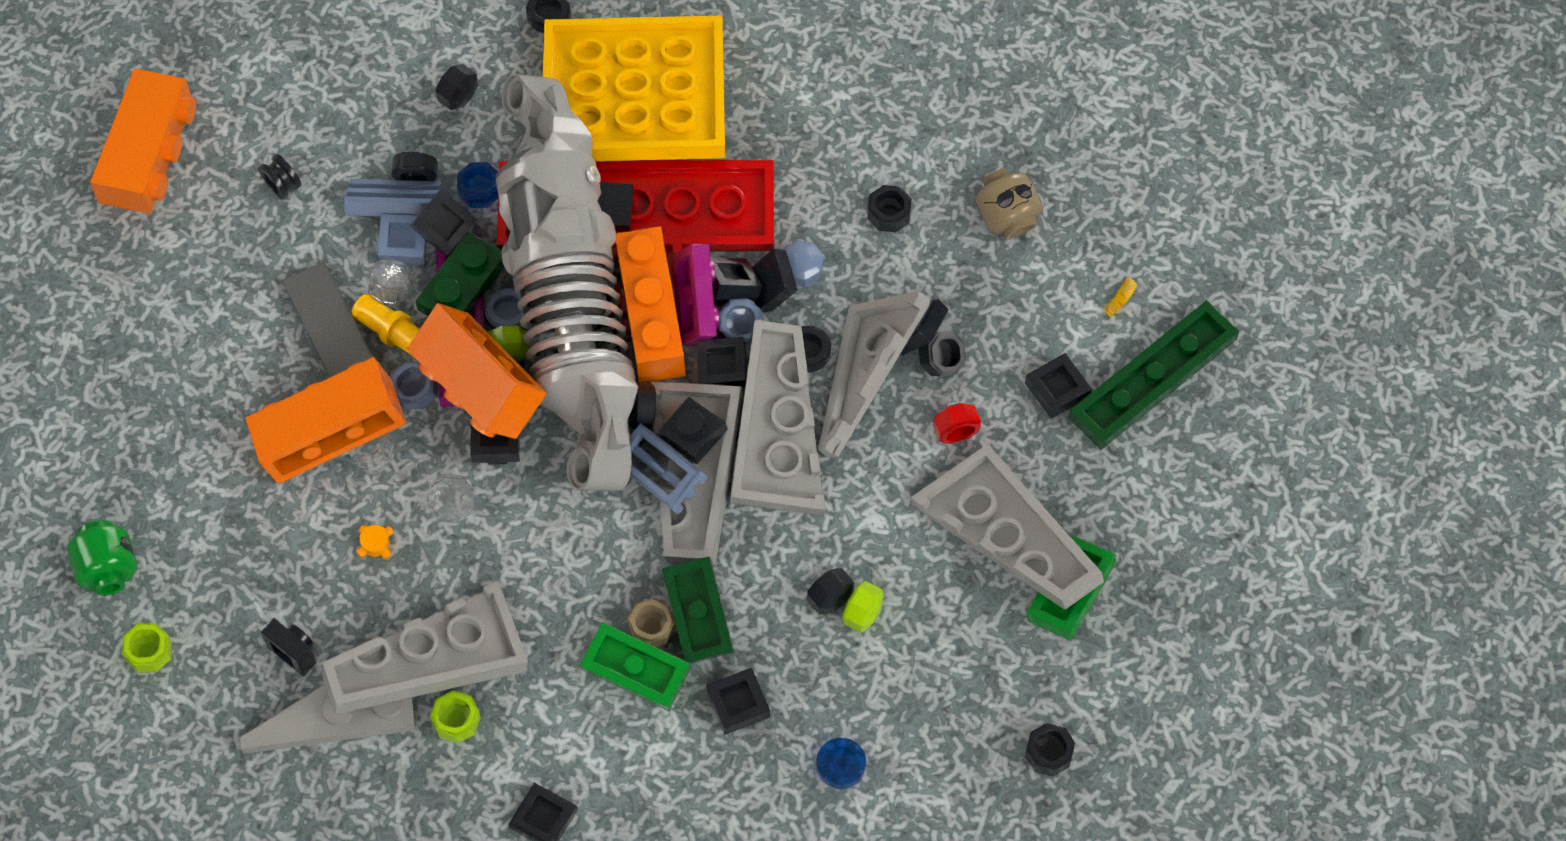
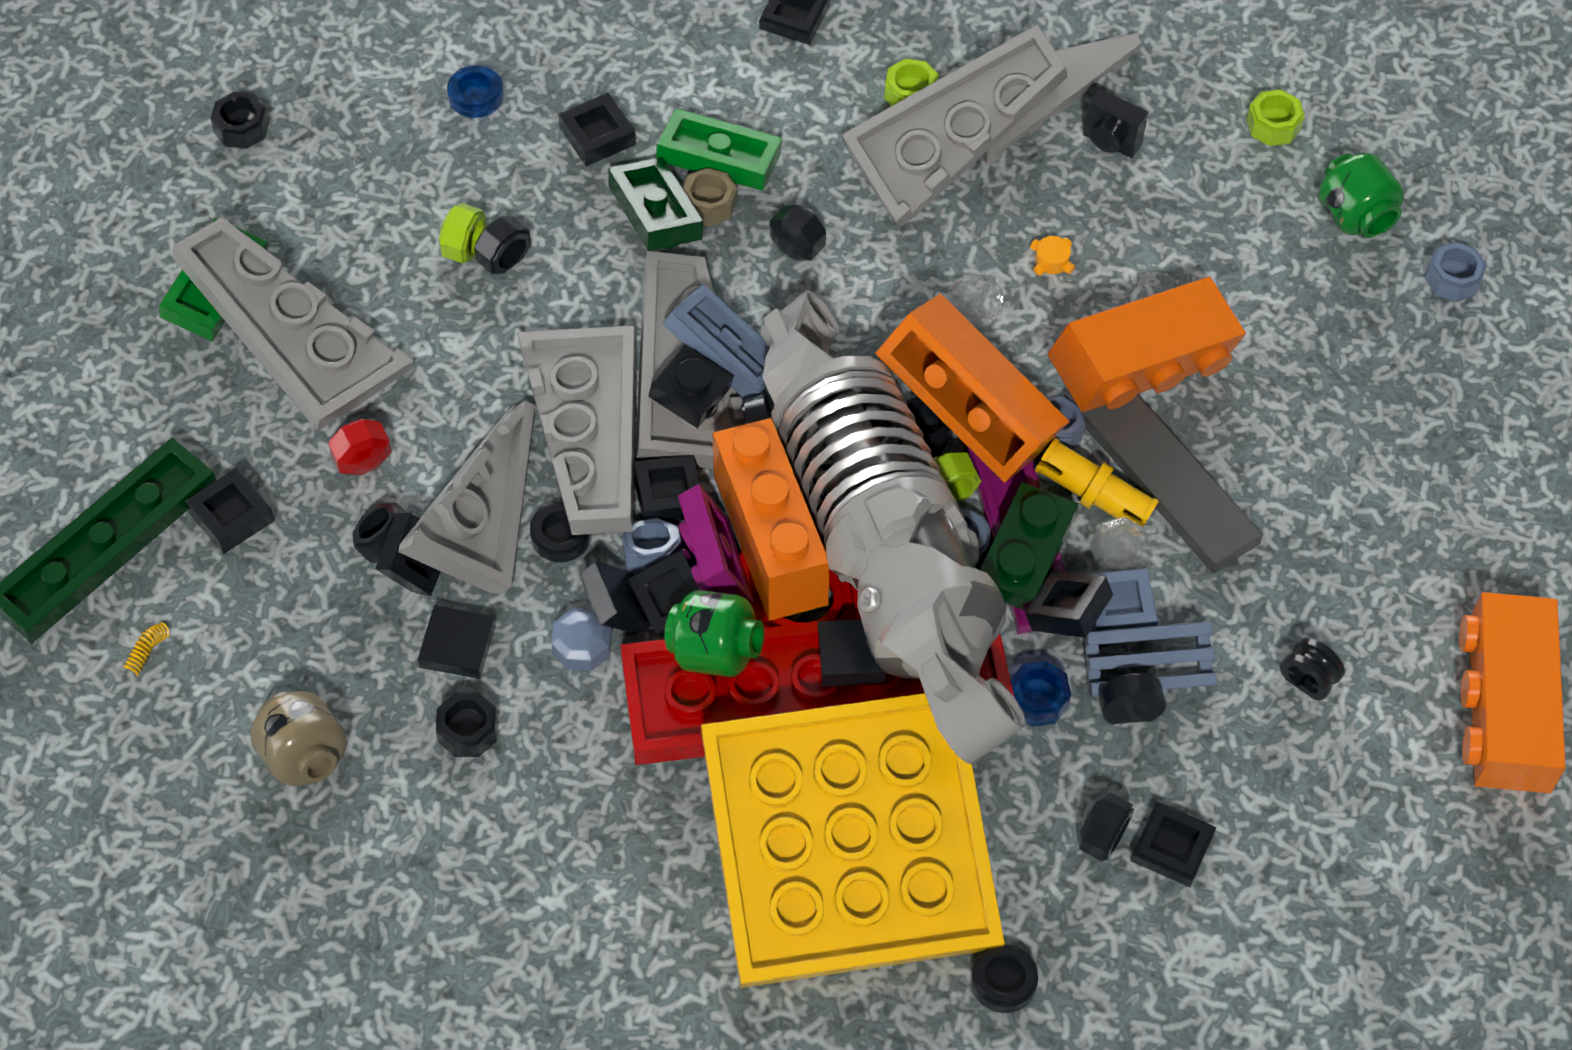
camera: 170 degrees right, 5 degrees down
(50, 482) = (1455, 271): none -> sand blue tile
(412, 80) = (1173, 844): none -> black tile
(583, 574) = (797, 233): none -> black tile
(705, 217) = (713, 633): none -> green head
(892, 272) = (456, 642): none -> black tile

